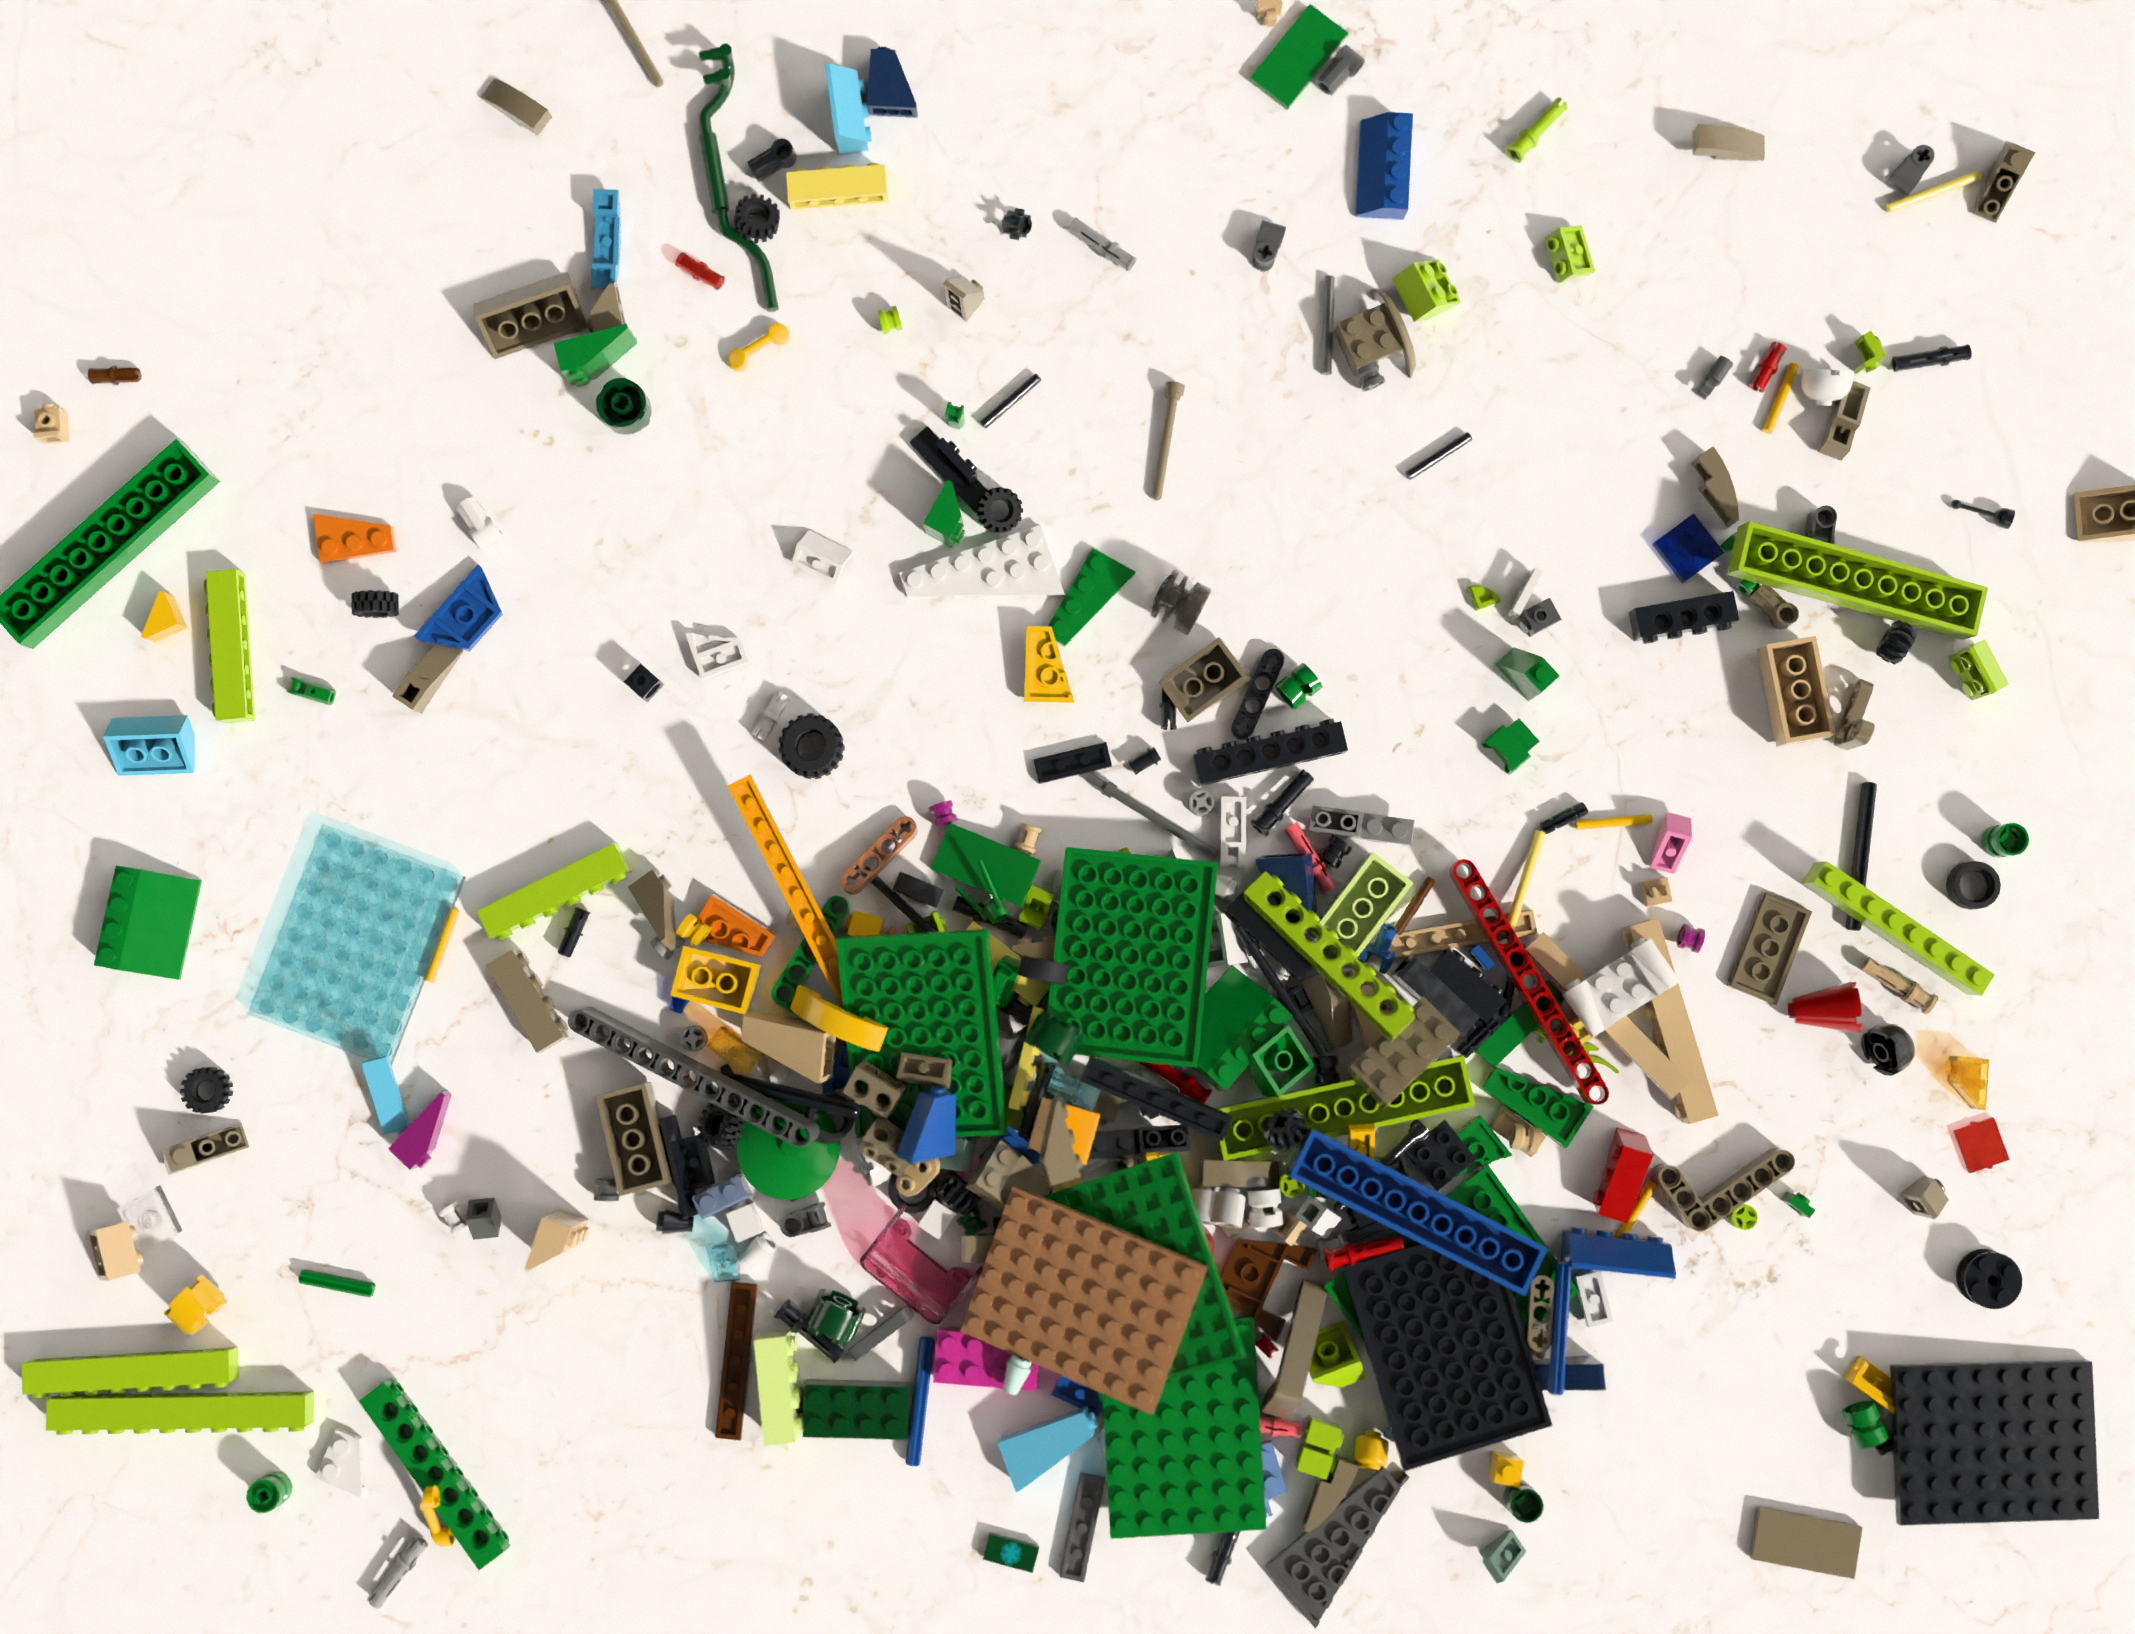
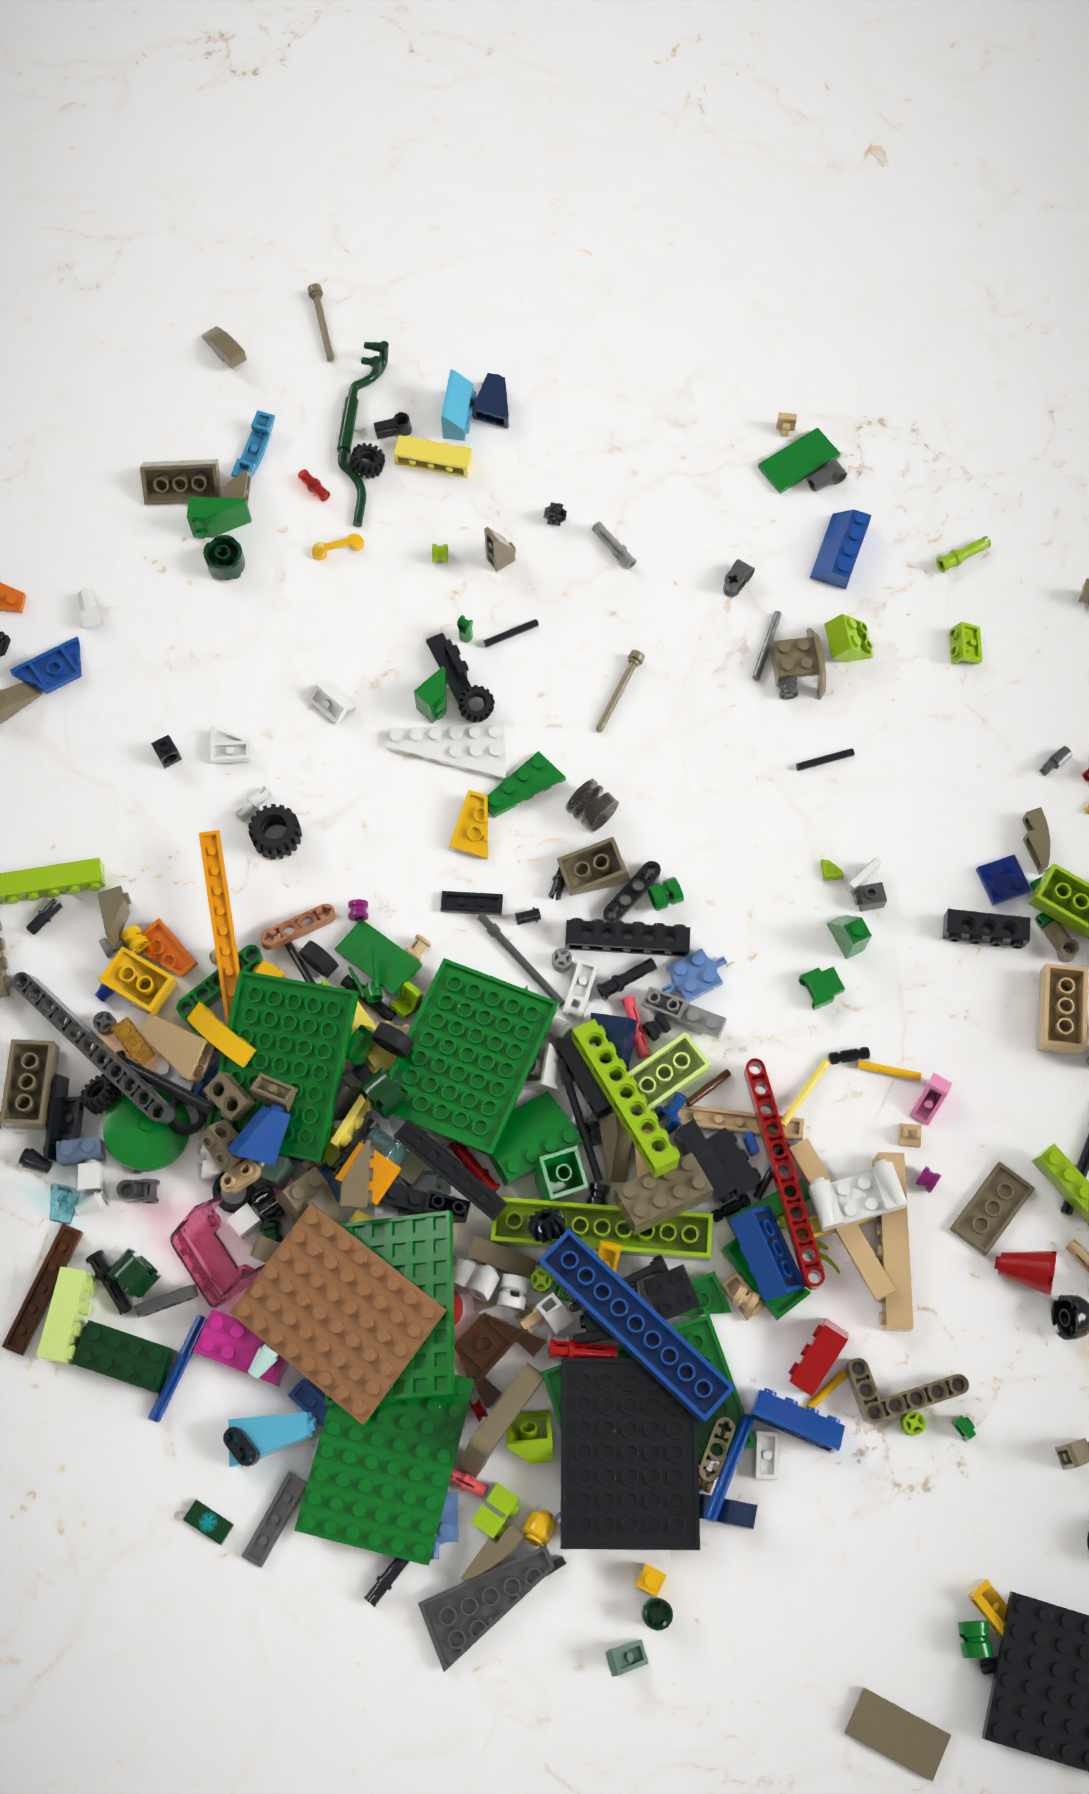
camera: 15 degrees right, 15 degrees down
(1026, 1464) = (236, 1449): none -> black beam
(1359, 775) = (694, 975): none -> medium blue plate
(1535, 1080) = (766, 1253): none -> blue slope

